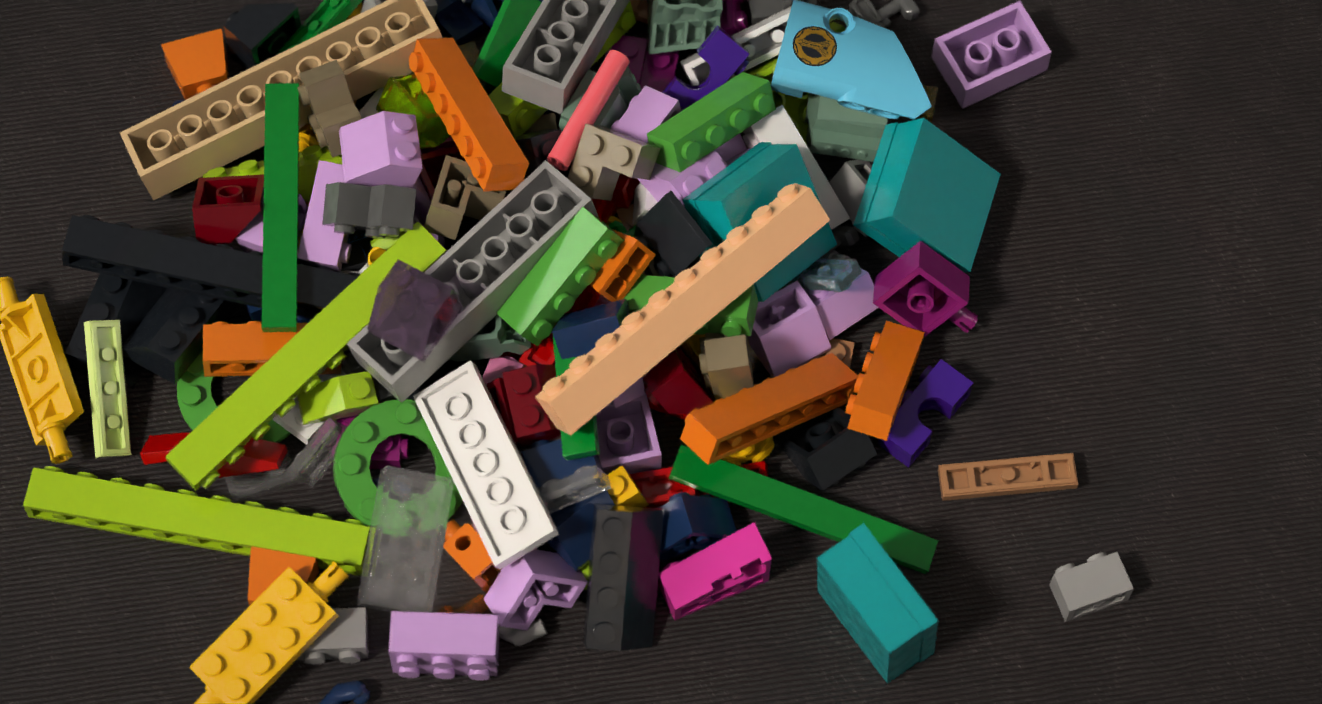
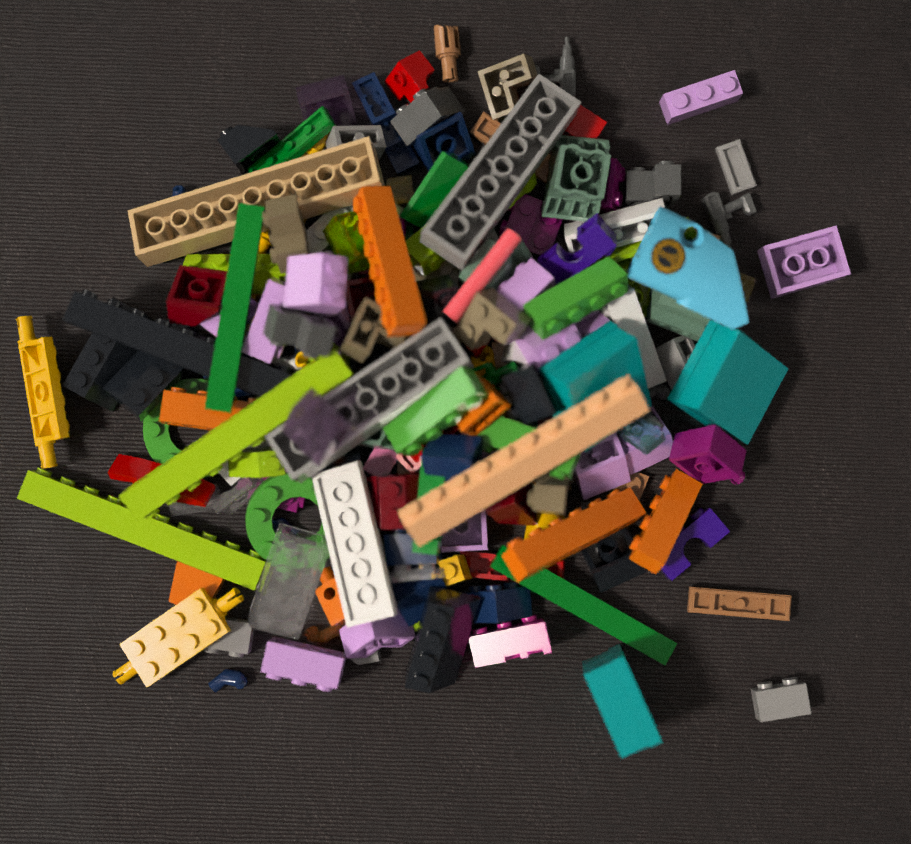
camera: 10 degrees right, 20 degrees up
(107, 388) = (90, 417): yellowish green tile -> none
(197, 62) = (198, 159): orange torso -> none

